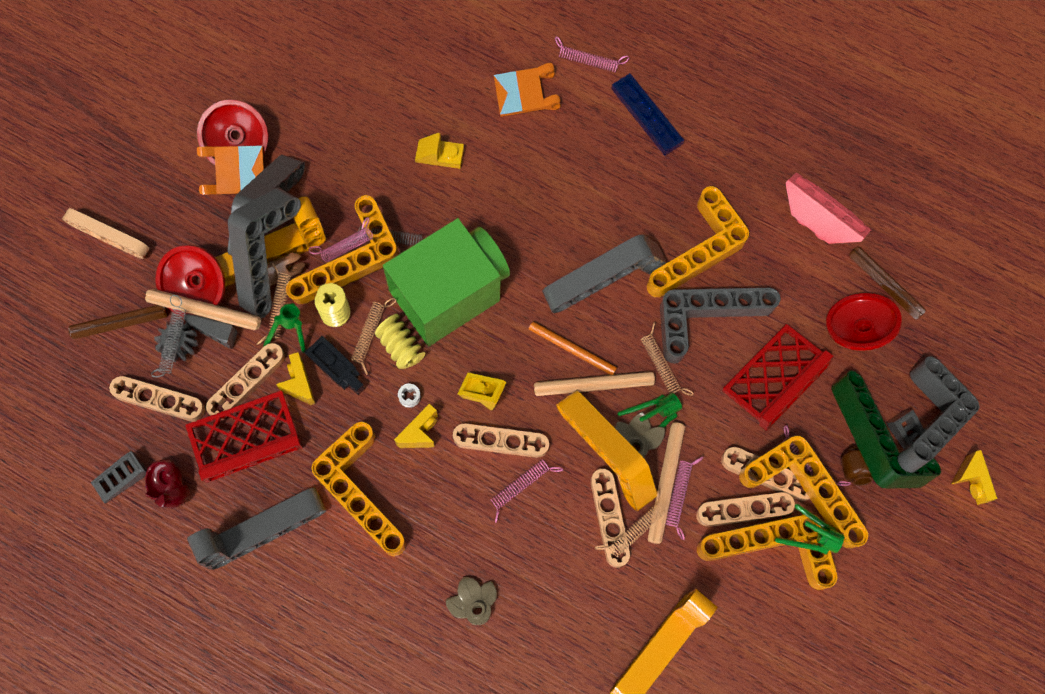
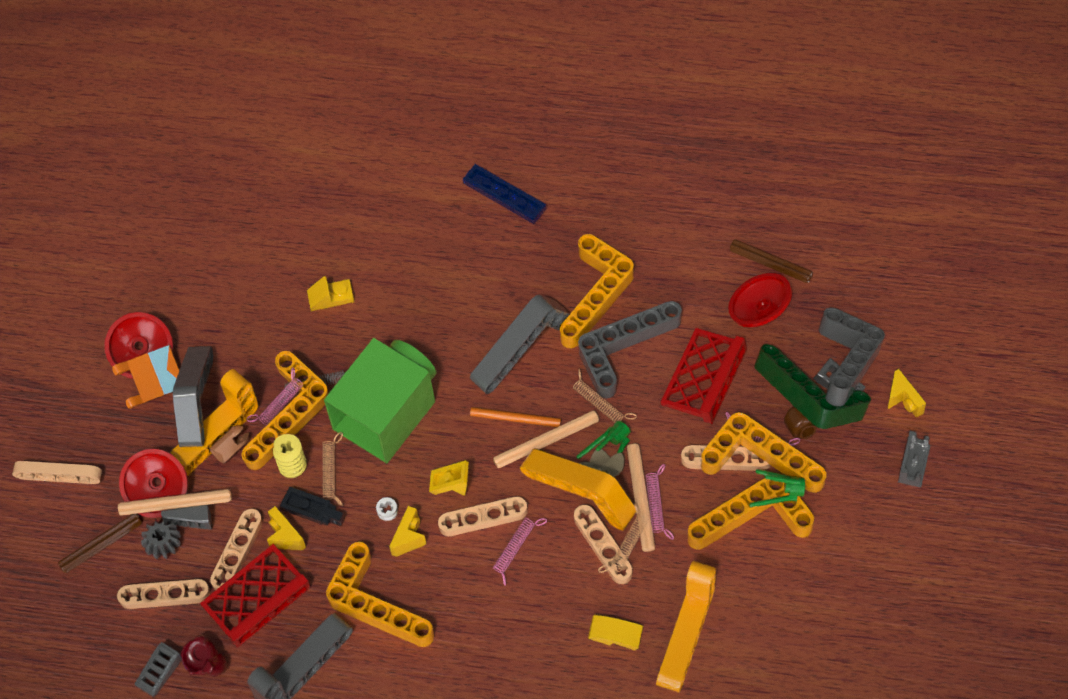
camera: 10 degrees left, 10 degrees down
(169, 355) = (159, 532): light grey piece -> none
(248, 248) = (201, 428): dark grey beam -> none
(274, 266) = (228, 445): light nougat piece -> none
(289, 319) = (257, 479): green plant -> none
(397, 344) = (359, 469): light yellow piece -> none
(469, 598) = (508, 653): dark tan plate -> none
(522, 91) = (384, 214): orange flag -> none
(561, 47) = (447, 161): bright pink piece -> none
(587, 619) = (616, 631): none -> yellow slope
(746, 513) = (715, 491): light nougat beam -> none
(823, 213) = (691, 221): coral wedge -> none
(960, 552) = (914, 460): none -> dark grey hinge

